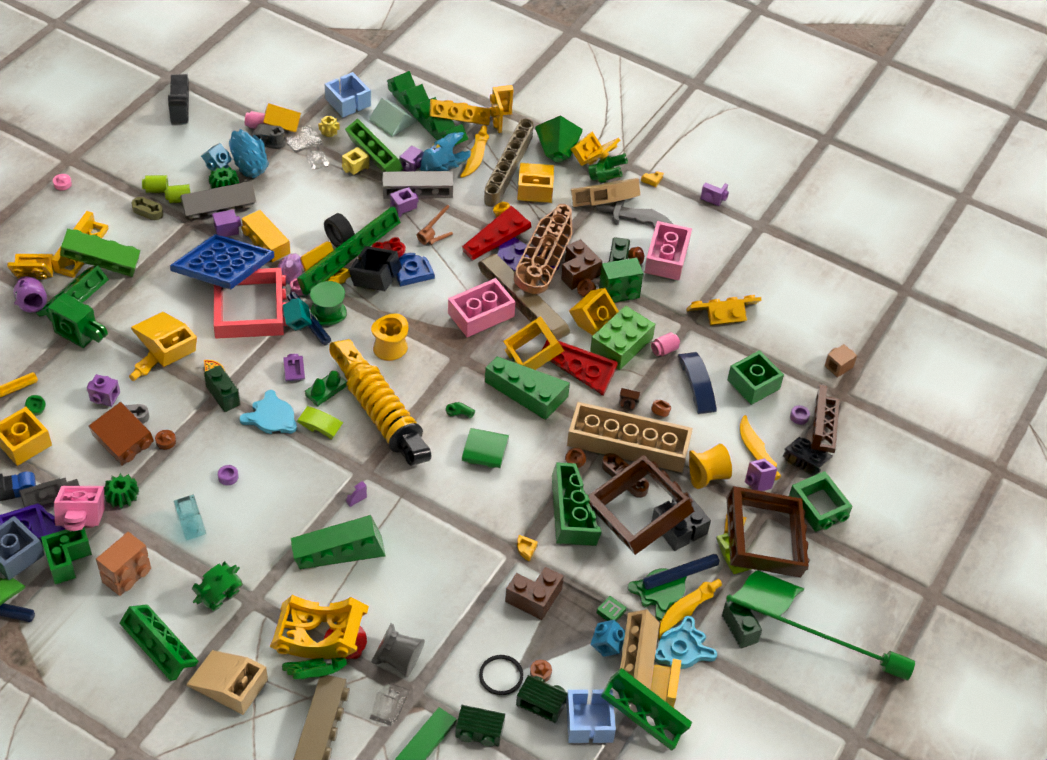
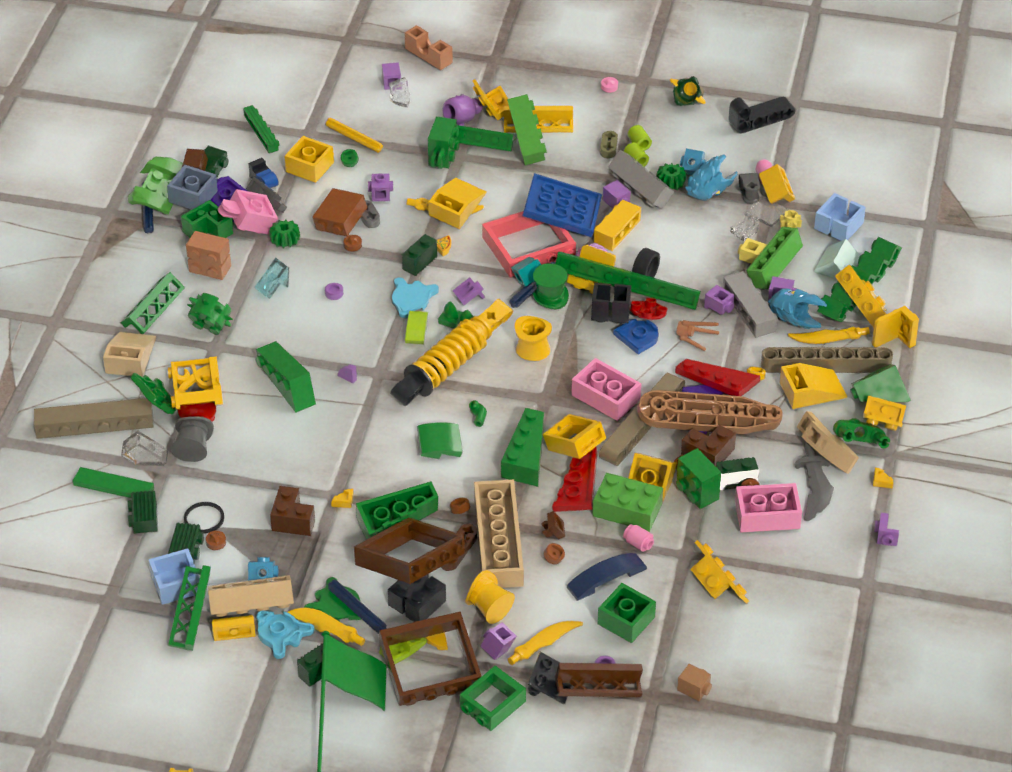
camera: 75 degrees right, 5 degrees down
(118, 131) = (687, 91): none -> dark green hair
(611, 609) = (299, 572): green tile -> none

